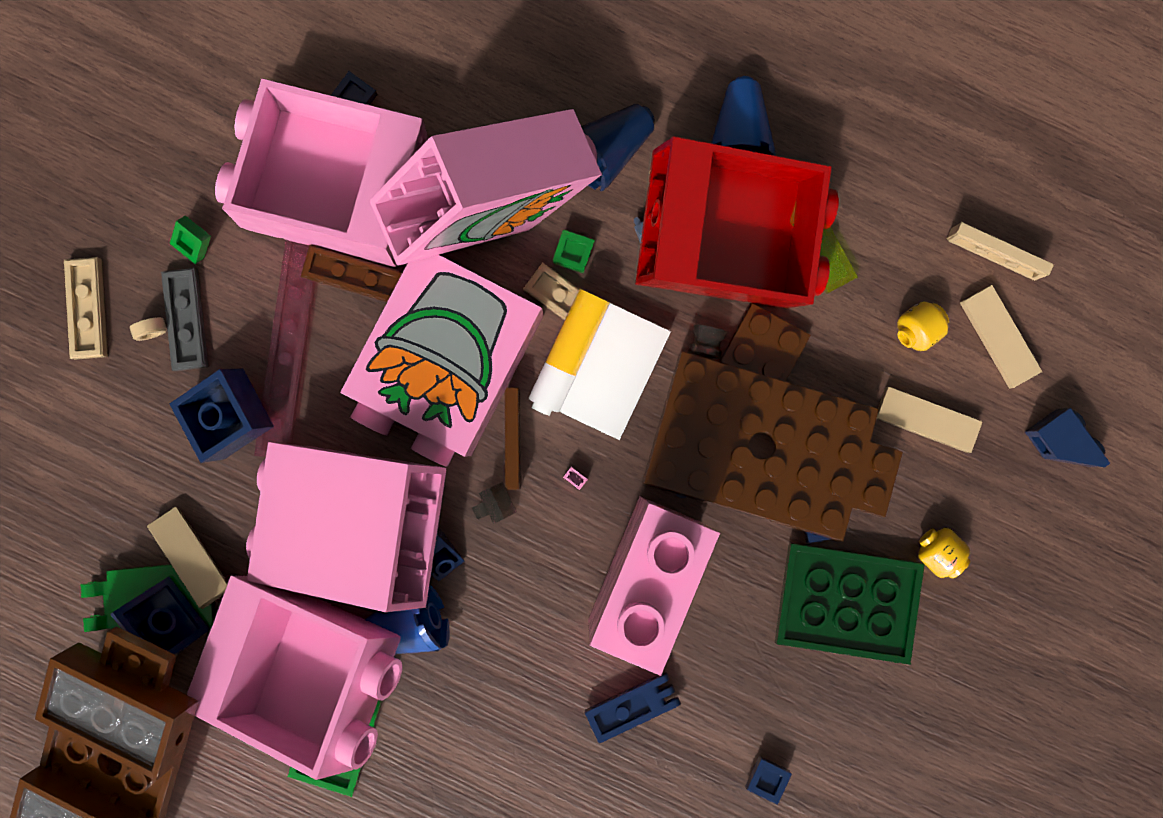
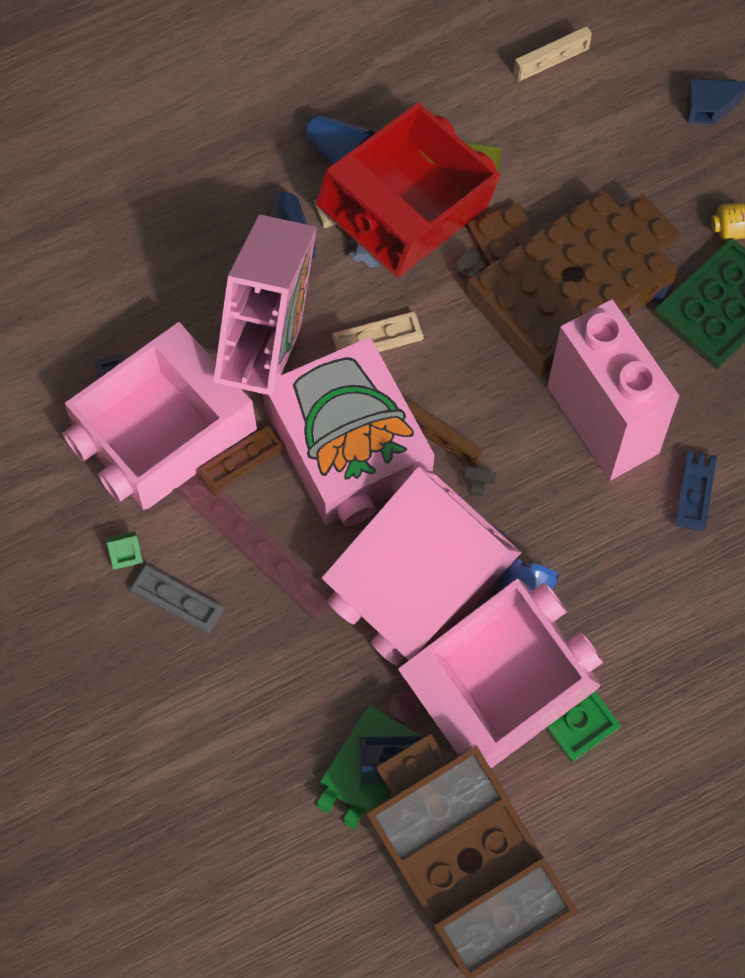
camera: 55 degrees left, 20 degrees down
(85, 308) = (111, 663): tan tile -> none
(148, 329) = (165, 624): tan tile -> none
(188, 557) = (356, 712): tan tile -> none
(221, 414) = (272, 609): dark blue brick -> none
(573, 251) = (340, 307): green plate -> none
(575, 478) = (502, 417): bright pink piece -> none
(598, 364) = (434, 345): white door -> none
(922, 326) = (567, 131): yellow head -> none
(928, 420) = (635, 171): tan tile -> none
(1001, 337) = (611, 92): tan tile -> none

